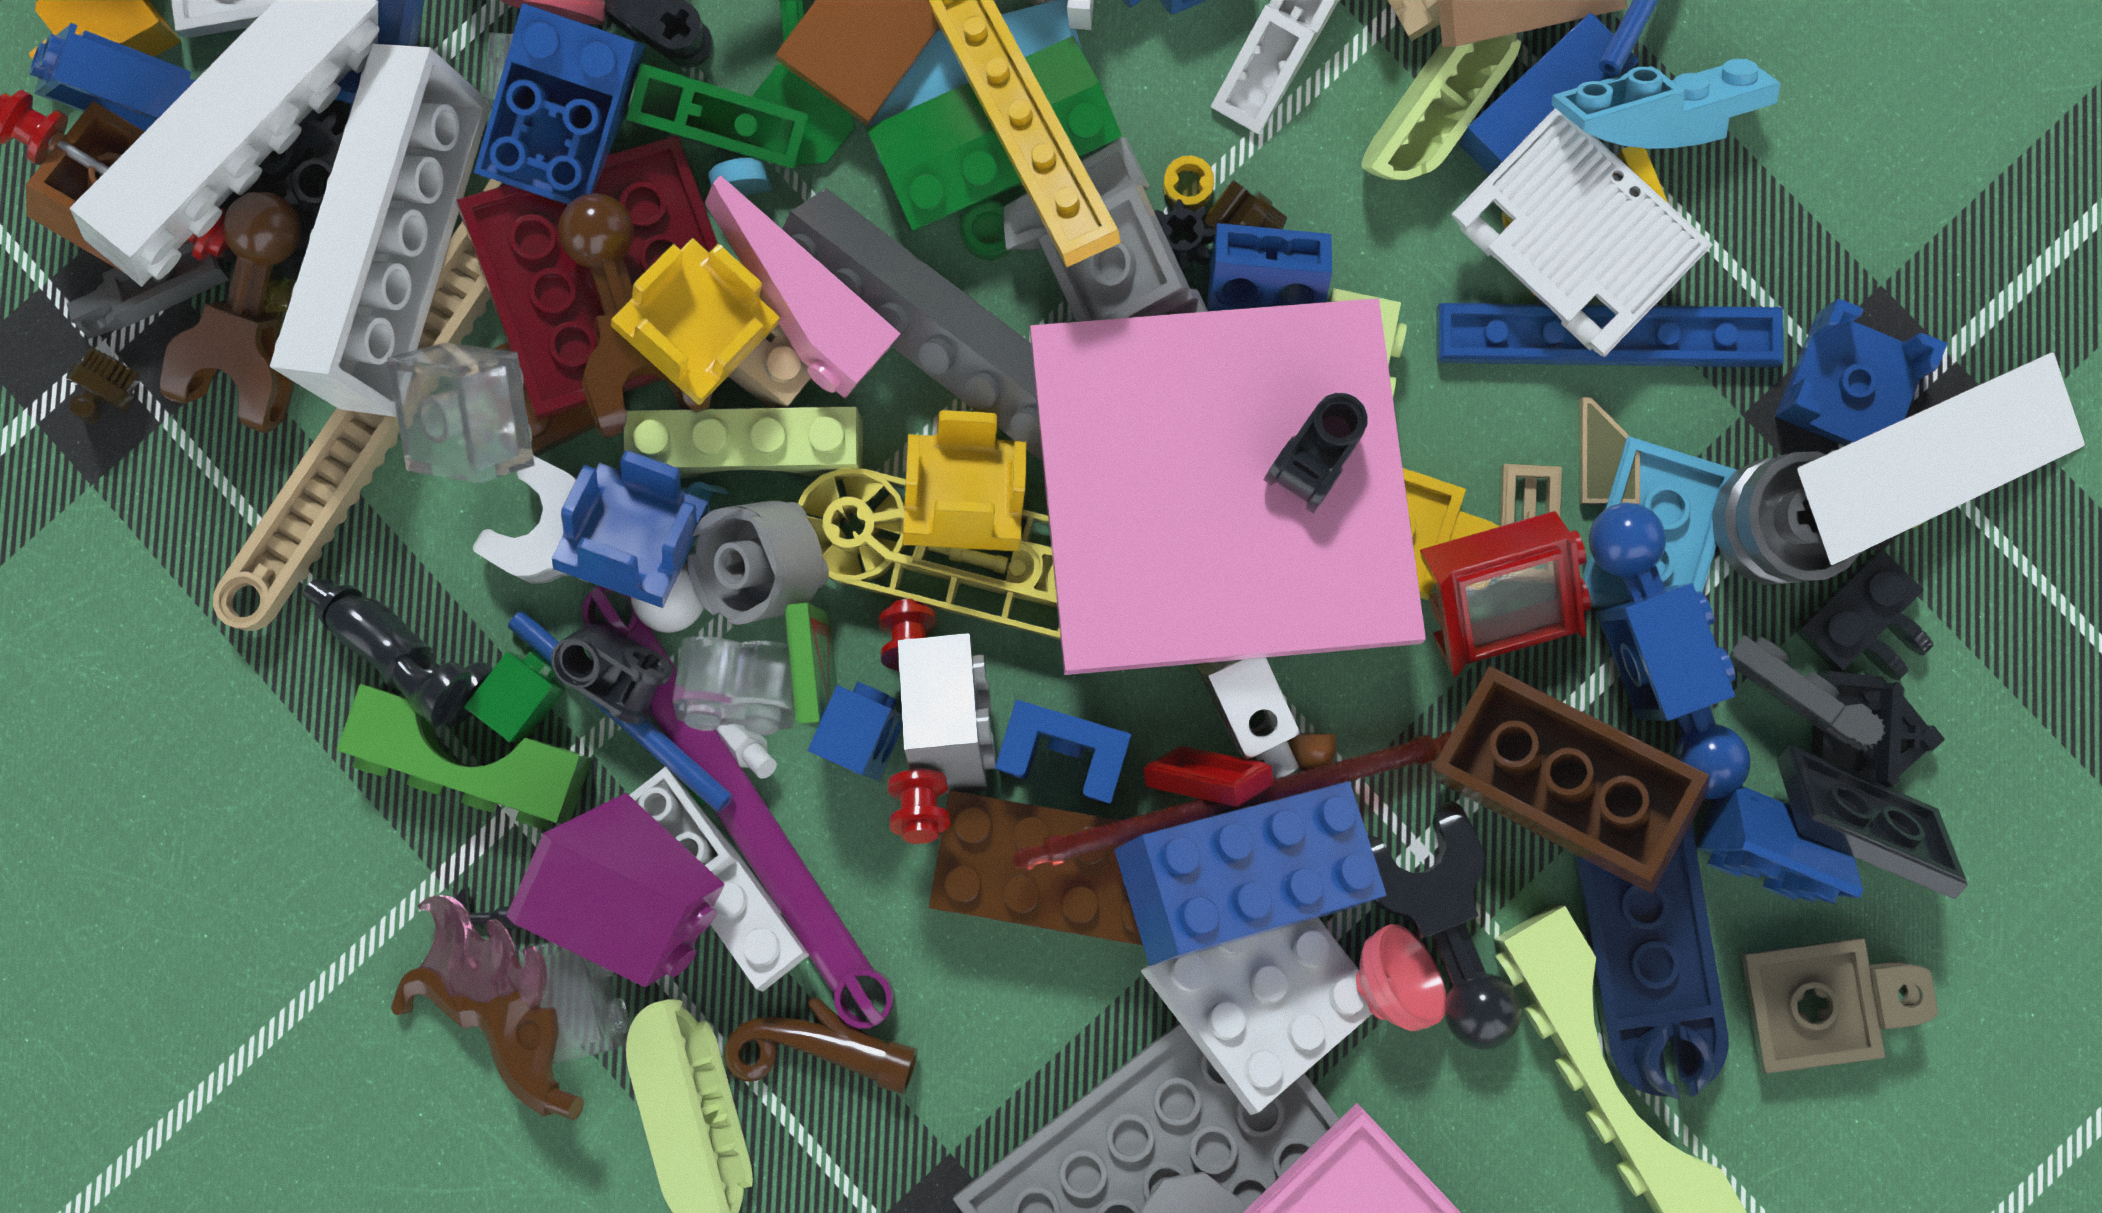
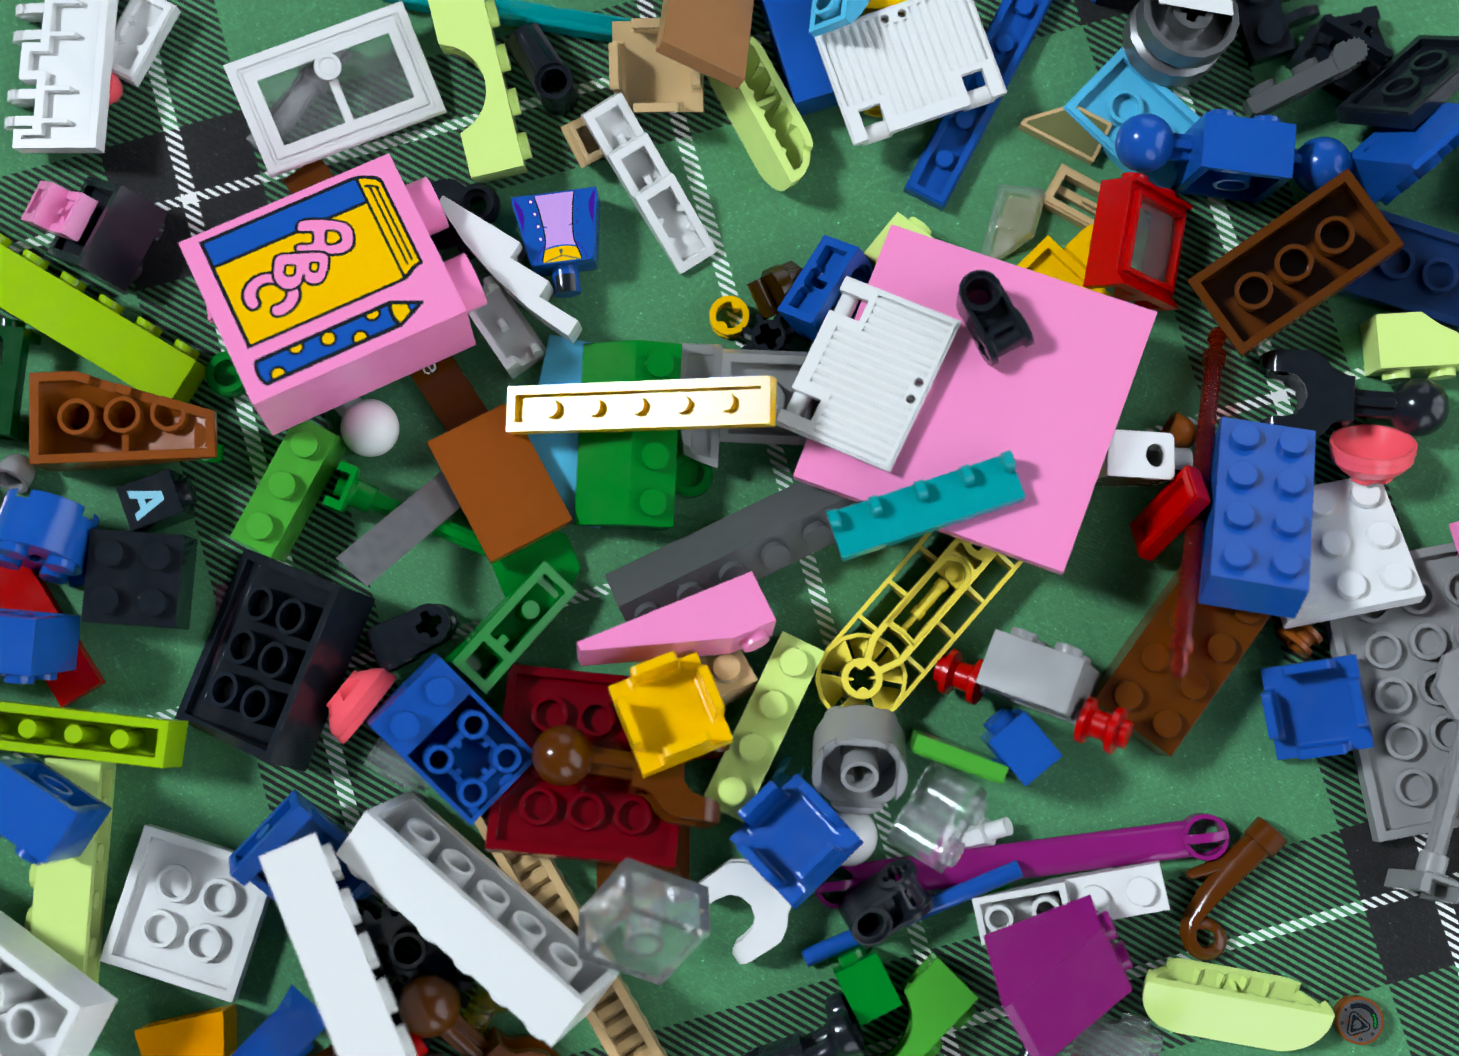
camera: 70 degrees left, 0 degrees up
(744, 174) = (562, 635): medium azure tile -> none
(964, 485) = (880, 588): yellow panel -> none
(1063, 482) = (926, 506): none -> teal hinge
(1067, 736) = (1114, 577): blue panel -> none
(1069, 1053) = (1316, 708): none -> blue panel
(1143, 1001) = (1299, 639): none -> dark orange bush
(1188, 350) = (868, 374): none -> white window
(1461, 443) = (1012, 220): none -> clear tile

